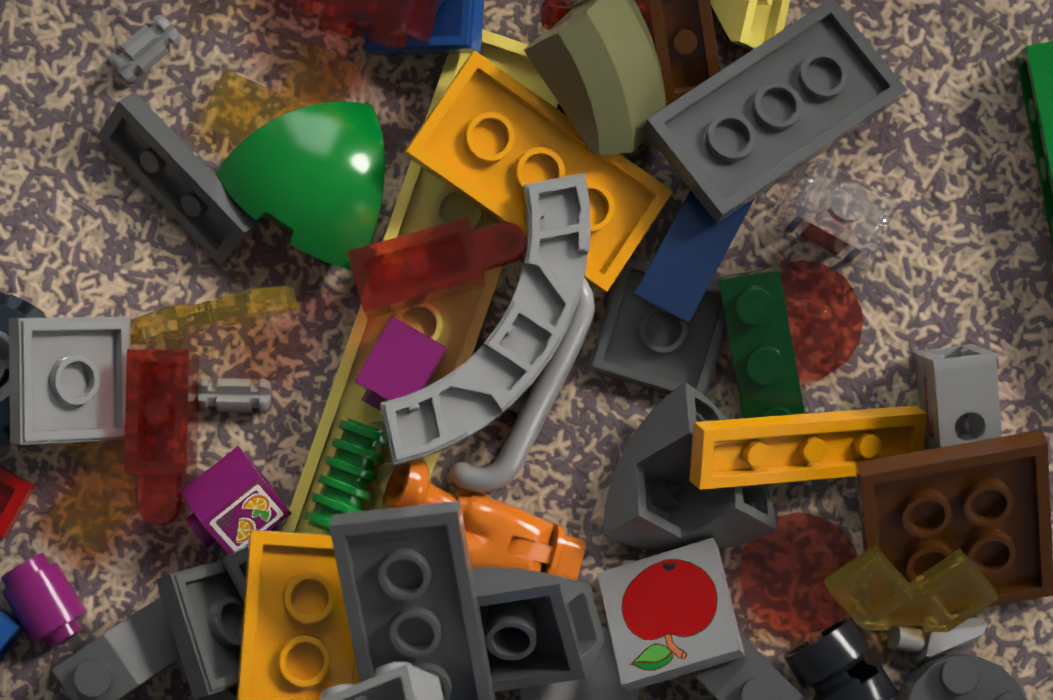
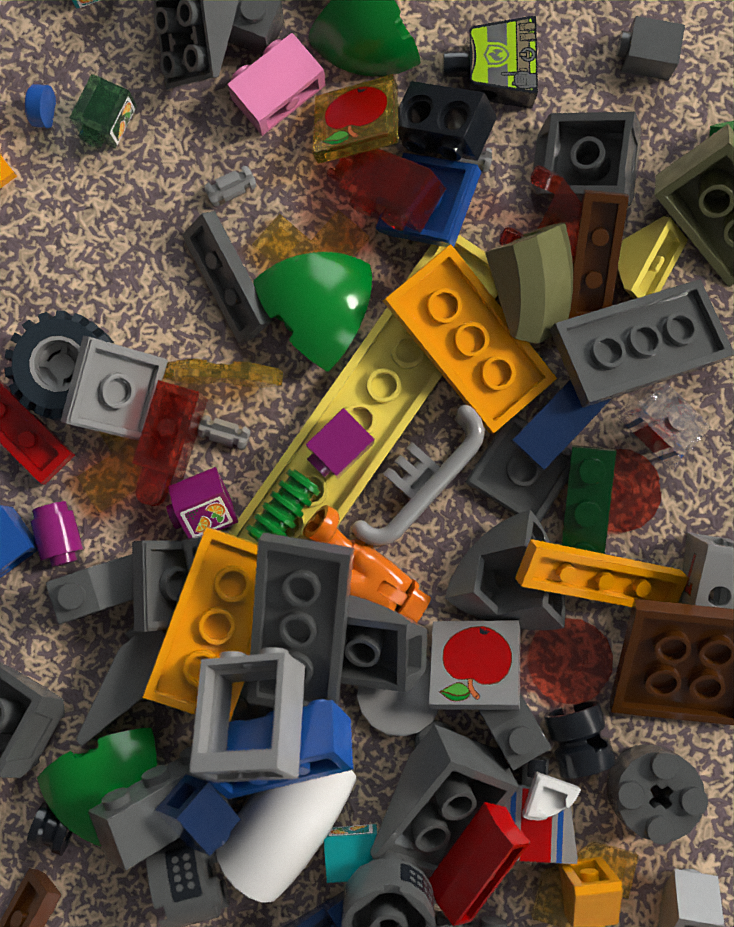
camera: 20 degrees right, 0 degrees up
(431, 264) = (380, 379): clear red brick -> none
(520, 343) = (428, 449): light grey tile -> none
(930, 645) = (650, 731): light grey bar -> none
(936, 600) = (659, 707): clear yellow tile -> none

